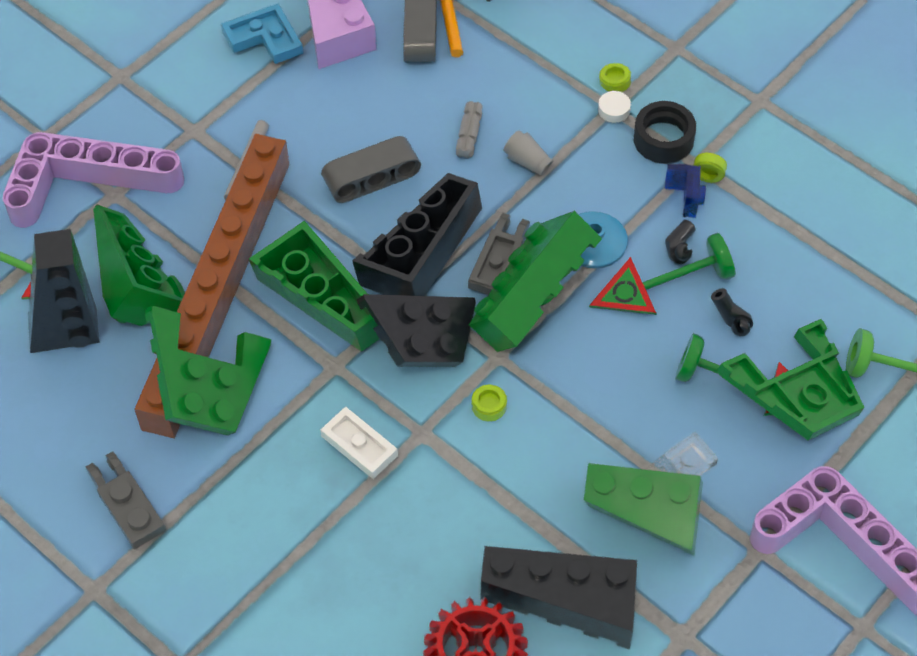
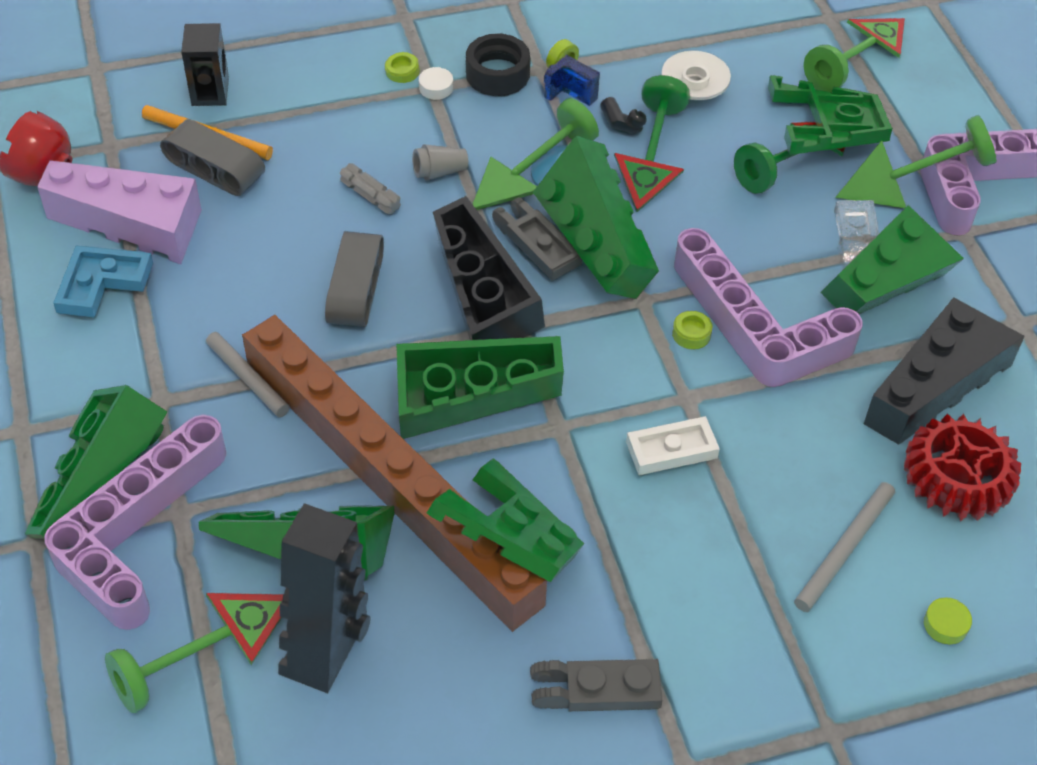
camera: 60 degrees left, 5 degrees down
(132, 123) = (107, 437): none -> green wedge
(349, 602) = (844, 547): none -> light grey bar
(422, 328) = (592, 324): black wing -> none
(523, 431) = (764, 346): none -> lavender beam
(545, 203) = (504, 185): none -> bright green piece
(732, 314) = (725, 123): black arm -> none
(752, 455) = (877, 179): none -> bright green piece
(772, 256) = (700, 71): none -> white dish

